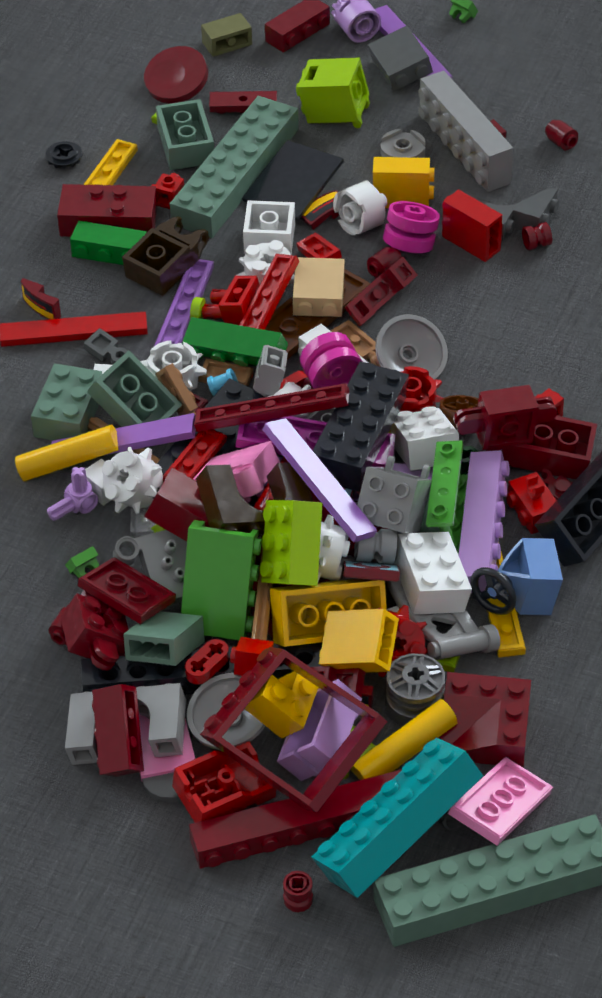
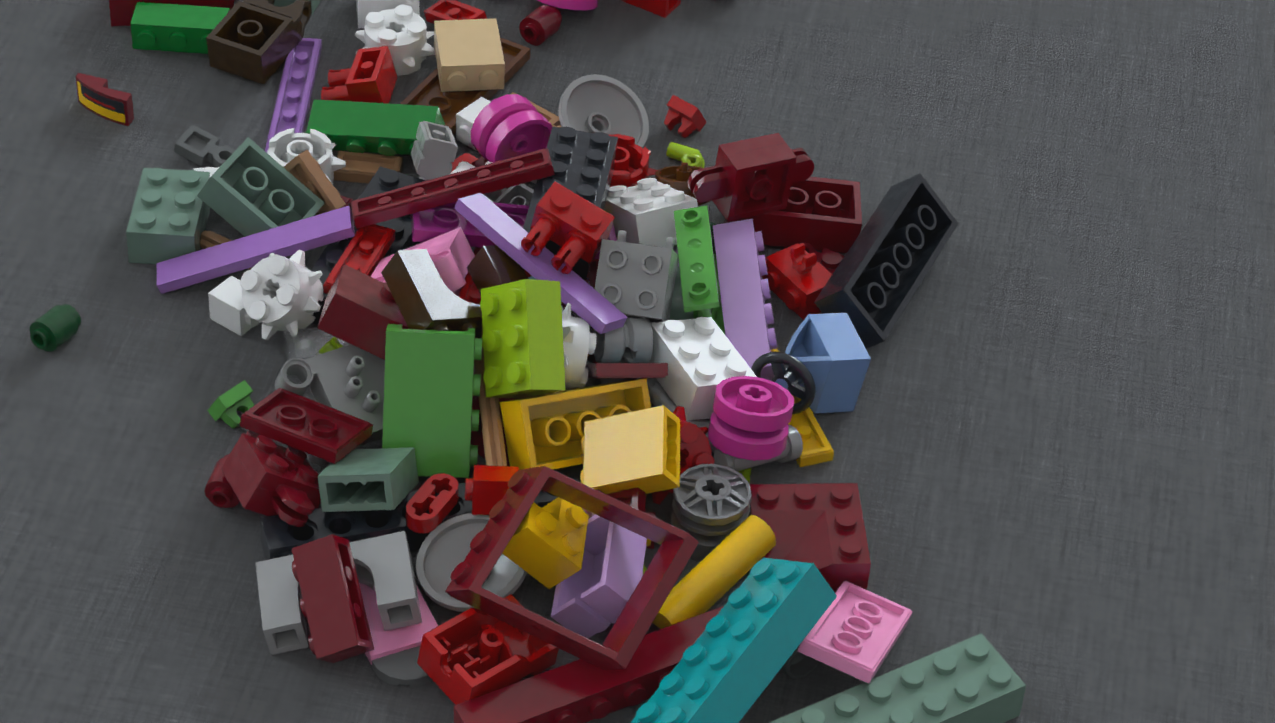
camera: 15 degrees left, 5 degrees down
(67, 453) = (183, 273): yellow brick -> none
(72, 328) = (152, 130): red tile -> none
(77, 496) = (206, 325): lavender axle -> none
(196, 307) = (313, 91): lime tile -> none
(215, 383) = (363, 175): medium azure bush -> none
(270, 291) = (410, 60): red tile -> none
(344, 450) = (569, 223): none -> red brick
(380, 291) = (546, 55): dark red slope -> none
(458, 619) = (750, 418): none -> dark pink wheel
(473, 385) = (685, 154): none -> lime arm
(478, 350) = (683, 112): none -> red tile

